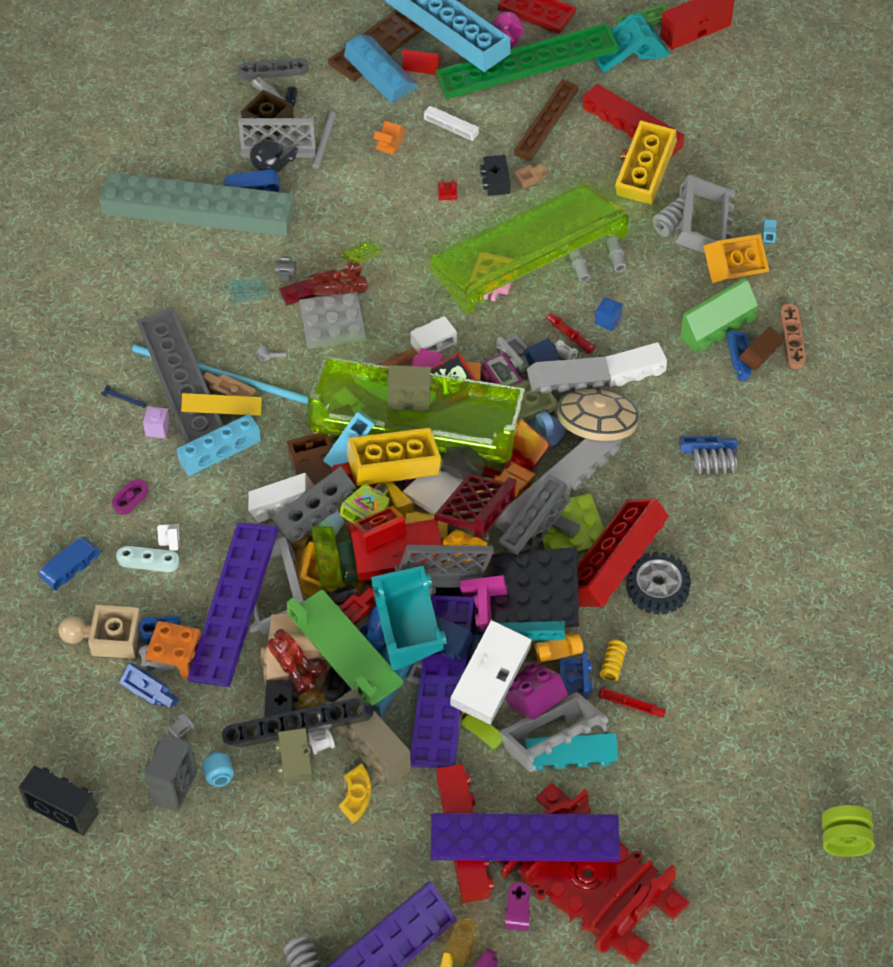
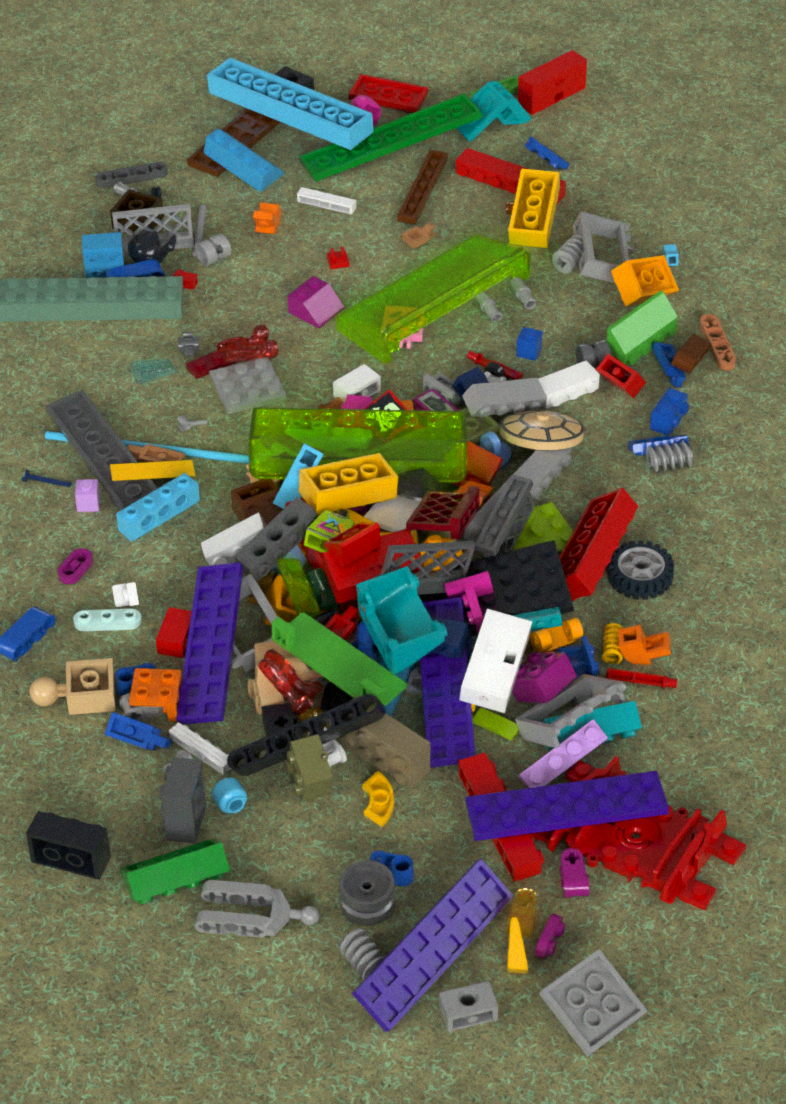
camera: 10 degrees left, 10 degrees down
(151, 840) = (174, 870): none -> green slope
(202, 710) = (199, 747): none -> white piece
(204, 584) = (174, 633): none -> red brick
(205, 909) = (249, 924): none -> light grey piece
(224, 158) = (102, 253): none -> dark azure brick
(300, 194) = (189, 279): none -> red piece
(320, 896) = (367, 892): none -> flat silver wheel
(330, 165) = (213, 249): none -> light grey wheel
(346, 869) = (399, 865): none -> blue piece
(361, 253) = (265, 319): clear neon green tile -> none
(409, 388) = (348, 423): olive brick -> none
(414, 238) = (314, 302): none -> magenta slope
(421, 61) = (283, 149): red slope -> none
(496, 175) = (384, 239): black brick -> none
(537, 780) = (564, 756): none -> lavender plate
(567, 526) = (536, 531): dark grey piece -> none
(568, 339) = (495, 369): none -> black tile
(637, 671) = (641, 648): none -> orange brick
(668, 335) = (592, 353): none -> dark grey wheel
(674, 97) = (544, 152): none -> blue hinge
(688, 364) = (621, 376): none -> red brick
(726, 410) = (669, 411): none -> blue brick

